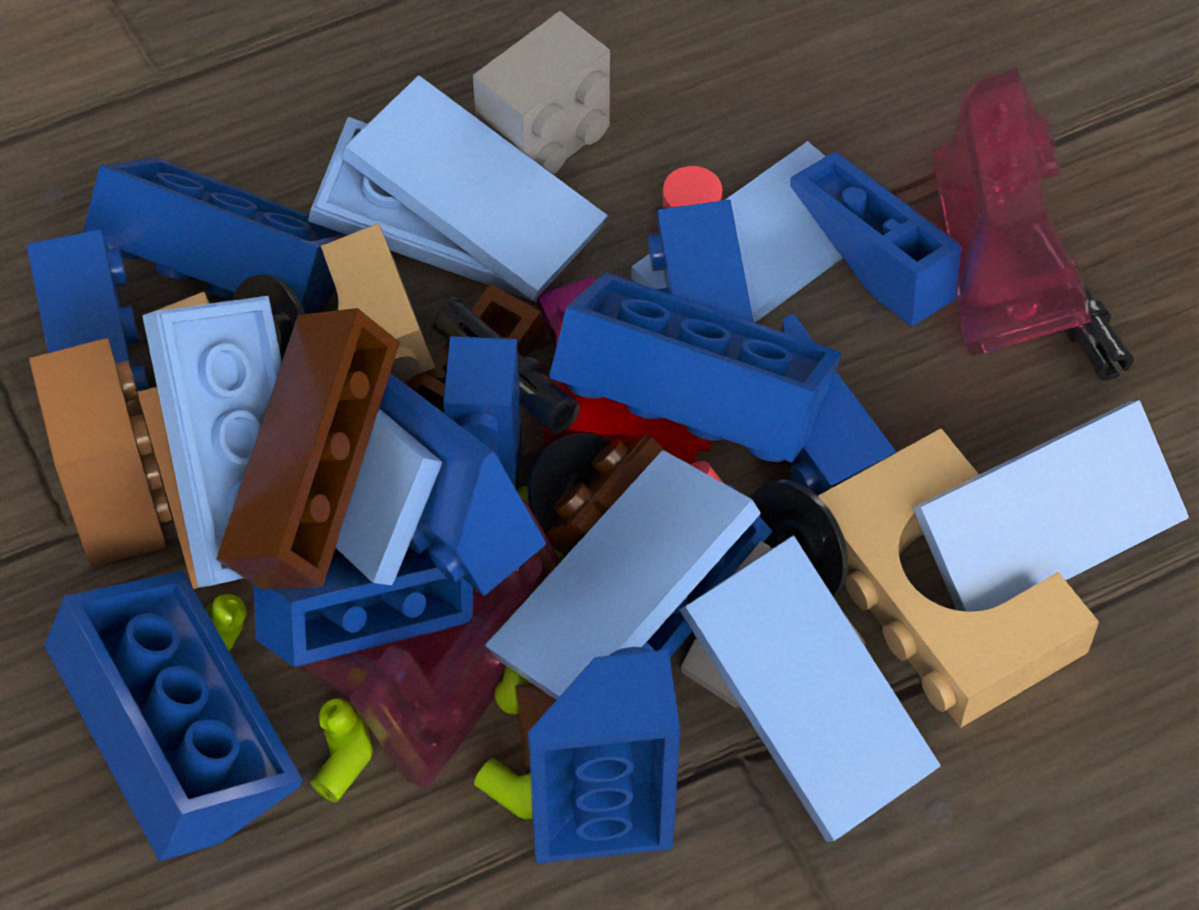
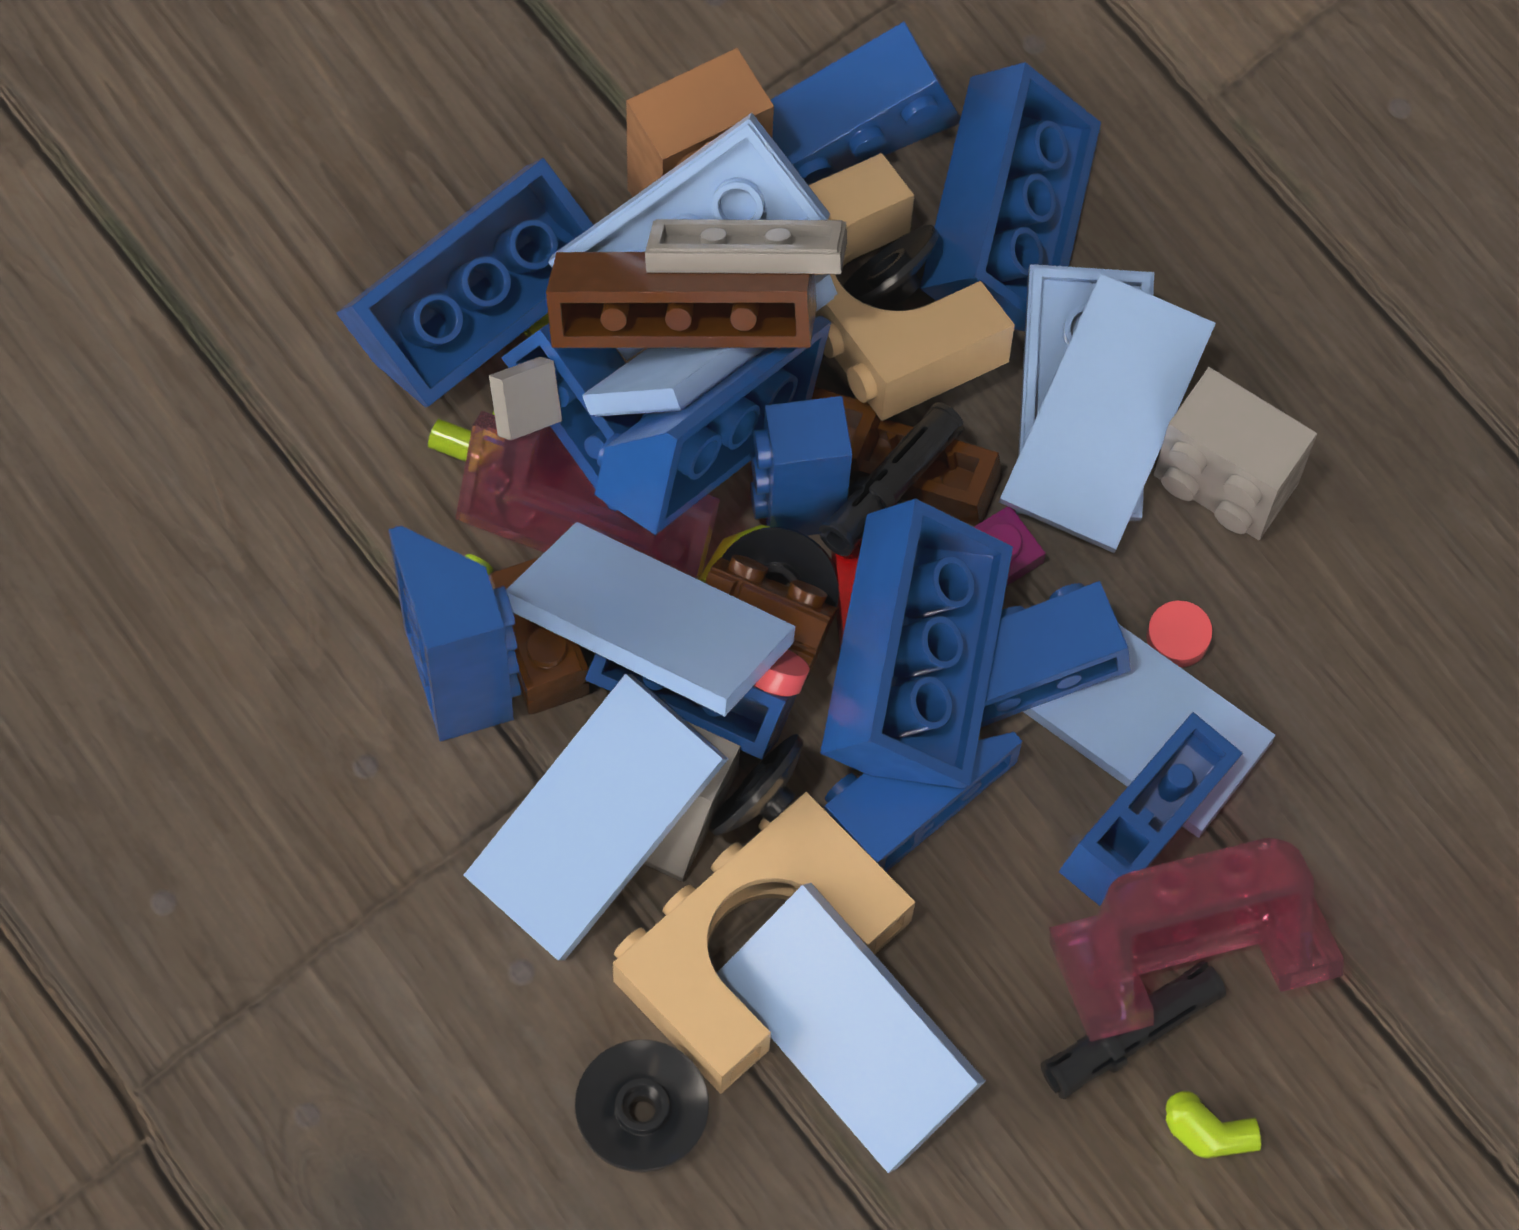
camera: 75 degrees right, 10 degrees up
(278, 369) = (746, 246): none -> light grey tile
(357, 641) = (525, 398): none -> light grey tile
(1112, 685) = (634, 1074): none -> black dish
(1170, 267) = (1205, 1133): none -> lime arm

